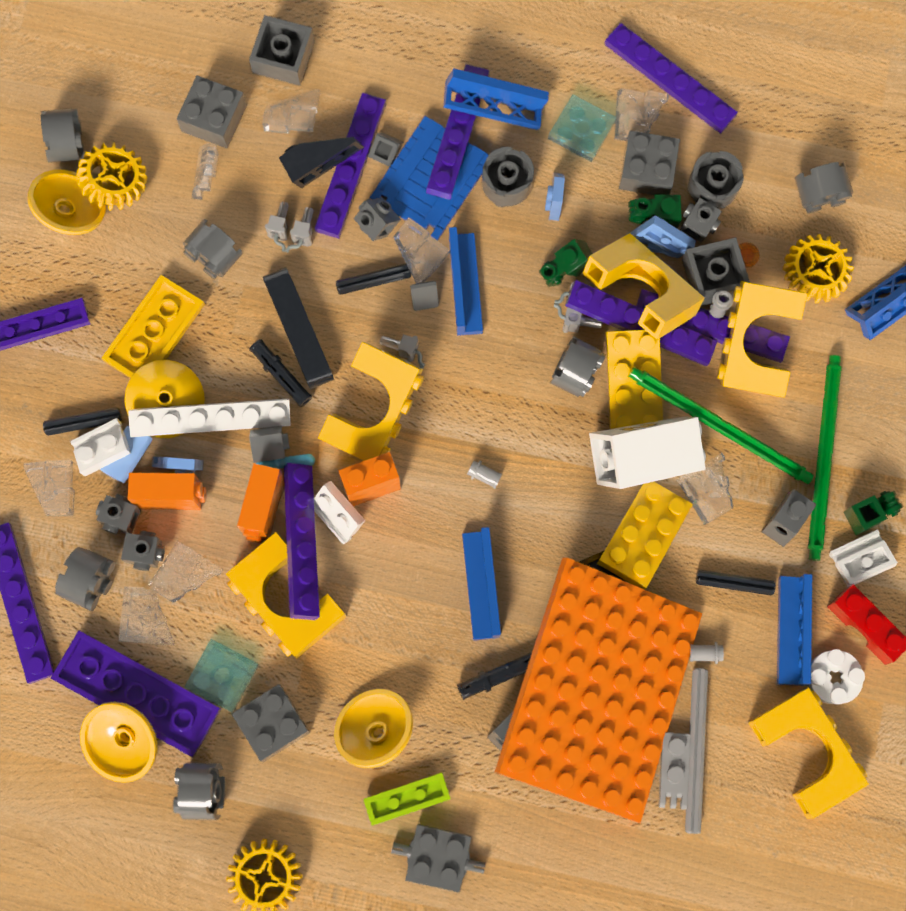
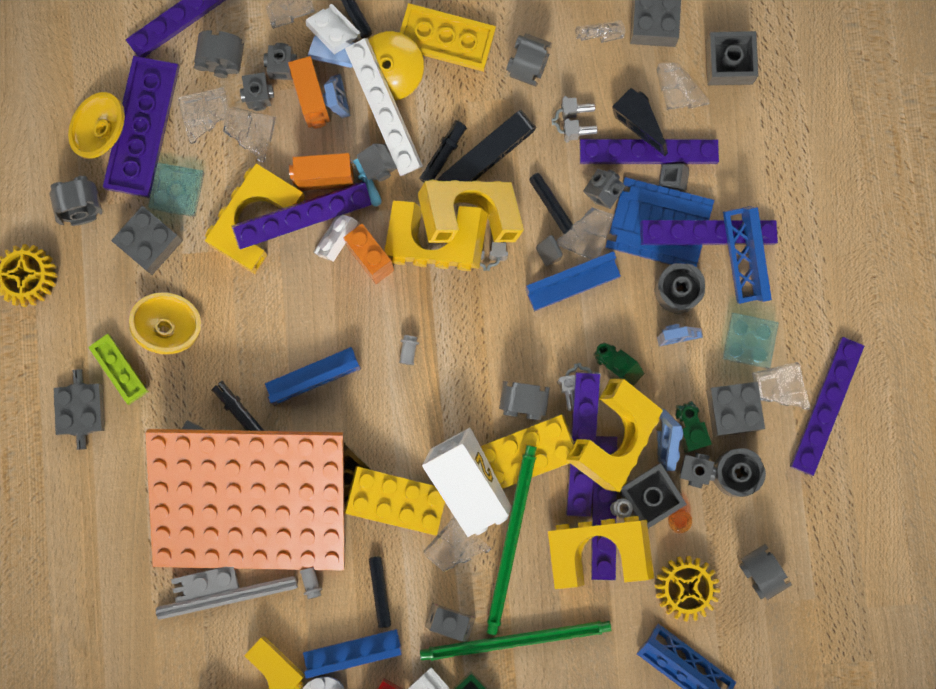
camera: 75 degrees right, 5 degrees up
(356, 387) = (494, 198): none -> yellow arch

